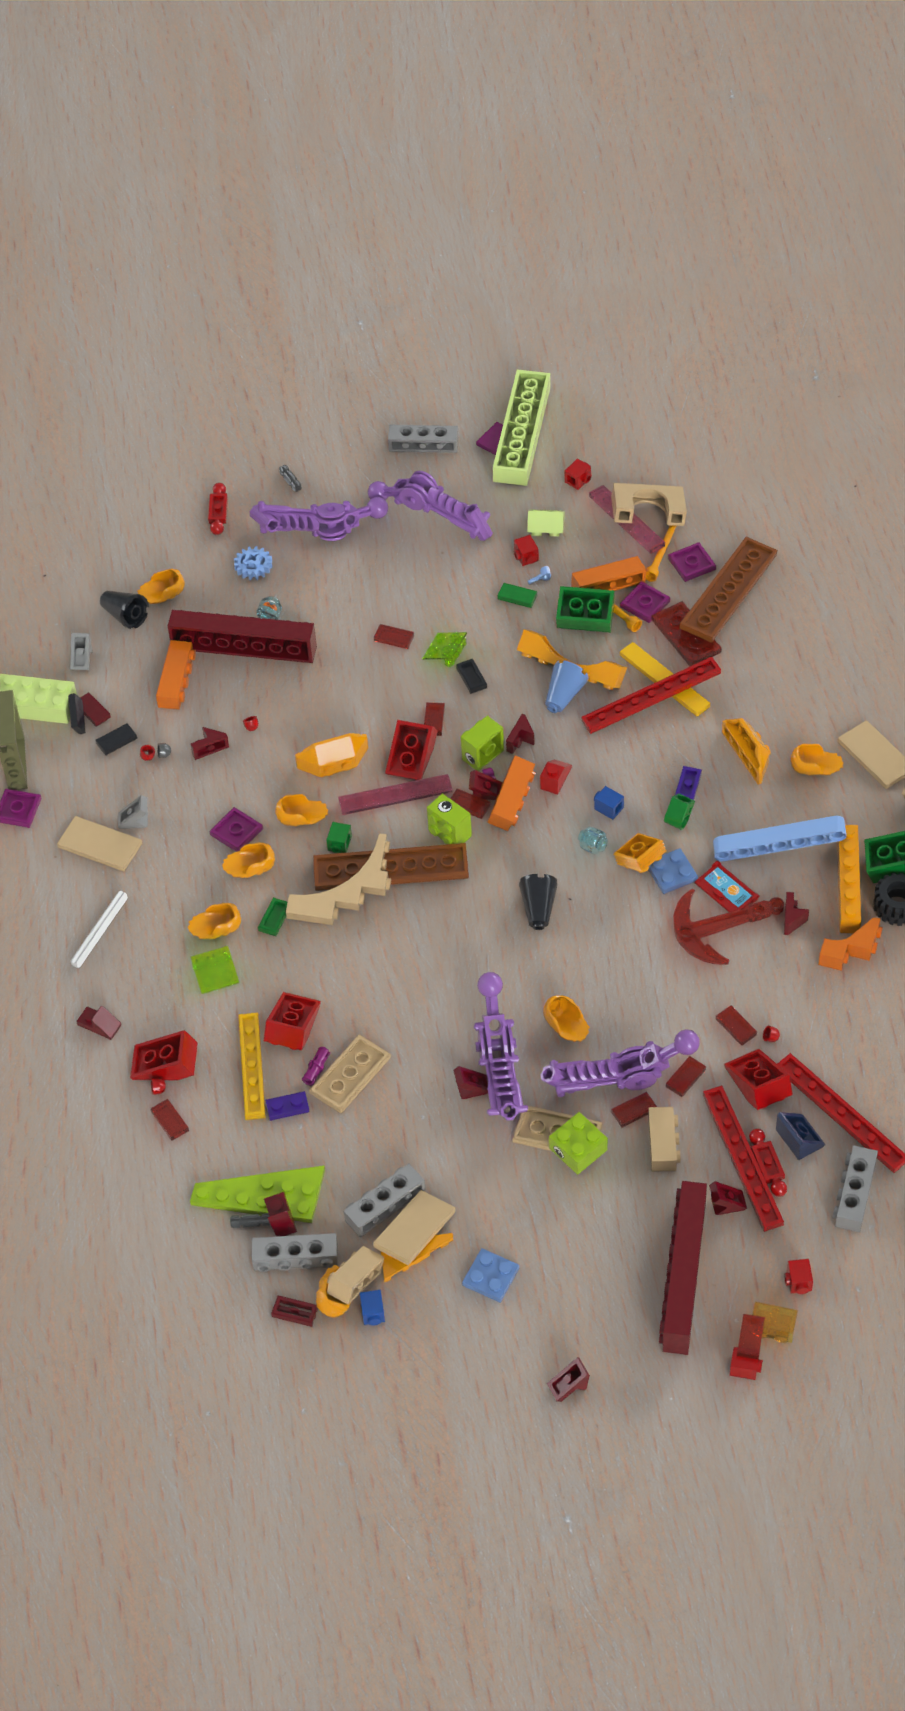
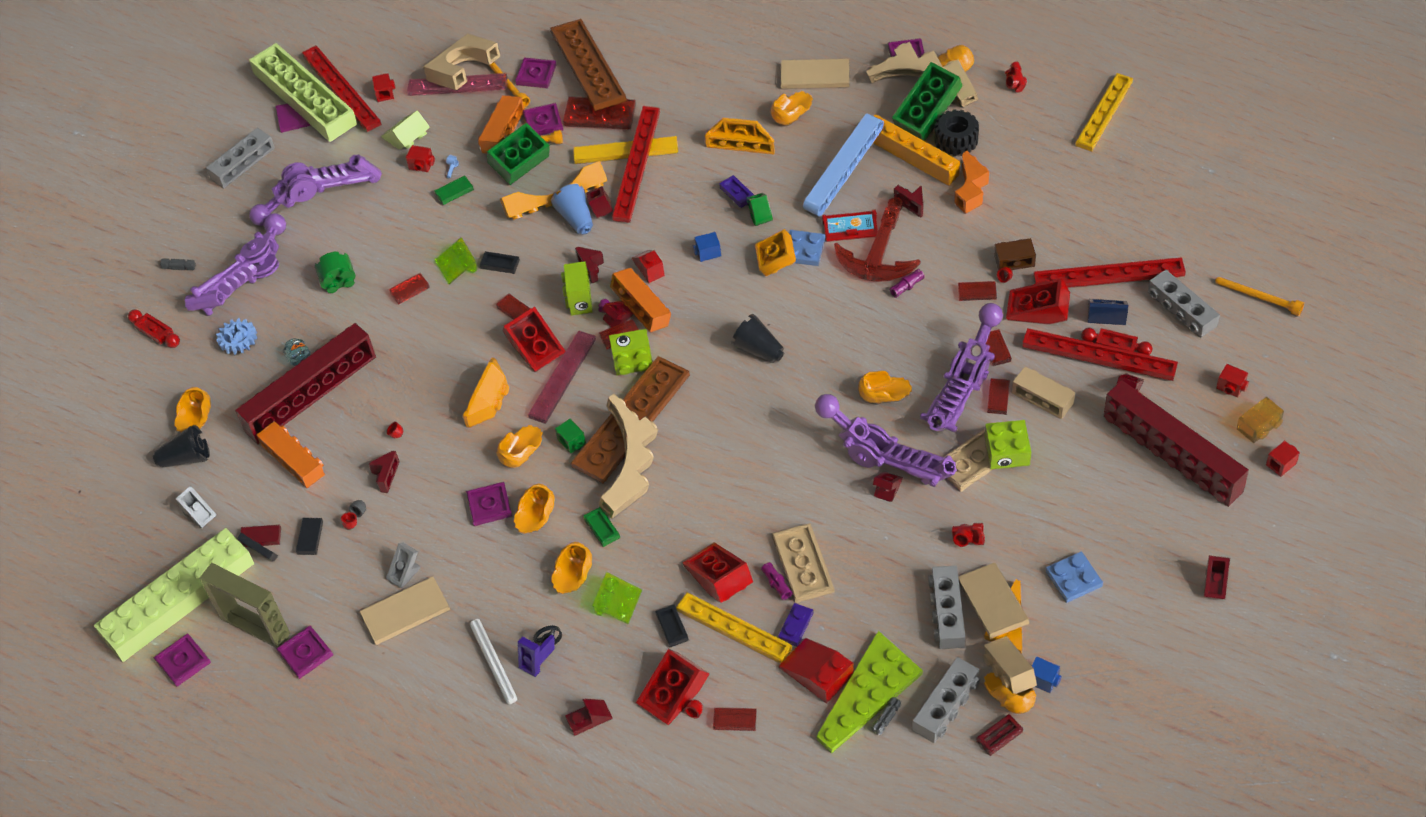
camera: 50 degrees left, 0 degrees up
(126, 953) = (534, 653): none -> dark purple piece
(221, 1023) = (672, 625): none -> black tile
(255, 1146) = (818, 668): none -> red slope
(280, 1215) = (905, 689): dark red slope -> none
(362, 577) = (335, 271): none -> green brick
(468, 1170) = (968, 533): none -> red plate
(552, 449) = (341, 88): none -> red plate
(586, 697) = (599, 202): none -> dark red brick
(593, 840) = (733, 276): clear light blue head -> none
(697, 968) = (907, 283): none -> magenta pin
(750, 1336) = (1269, 437): clear red tile -> none
(798, 1027) = (1015, 254): none -> reddish brown brick

